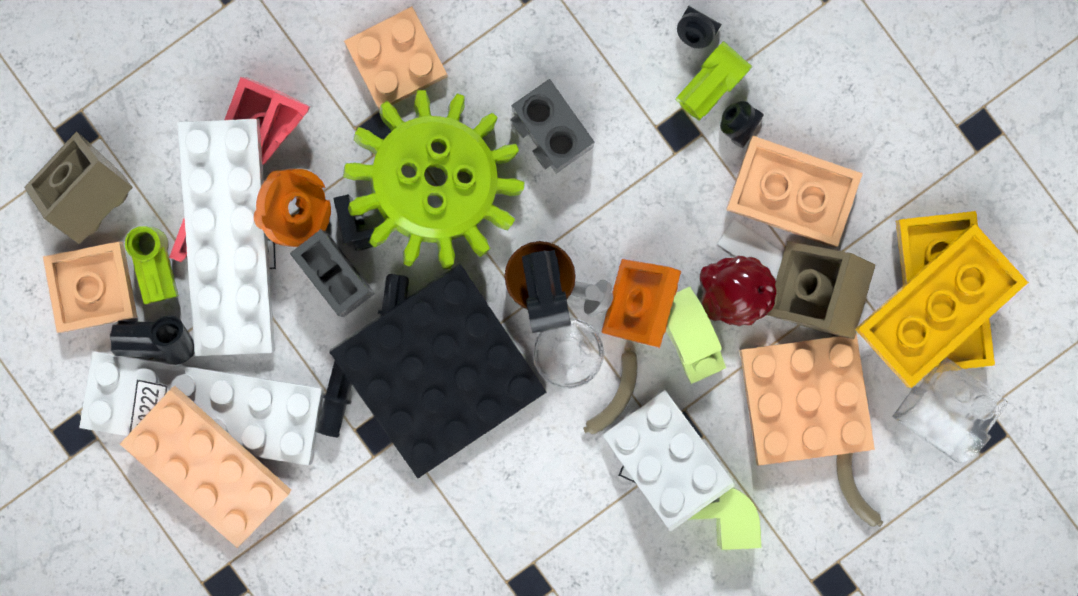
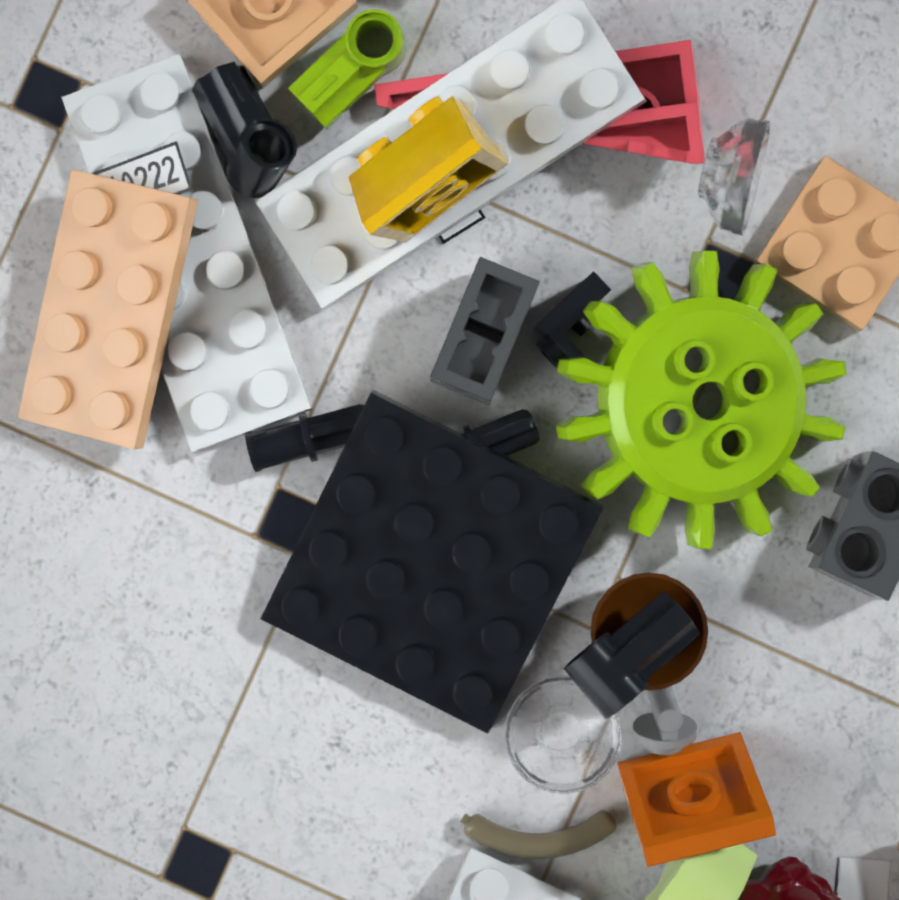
camera: 60 degrees right, 0 degrees up
(226, 257) = (423, 171): none -> yellow slope
(273, 203) = (542, 190): orange plate -> none
(324, 93) = (734, 172): none -> clear piece

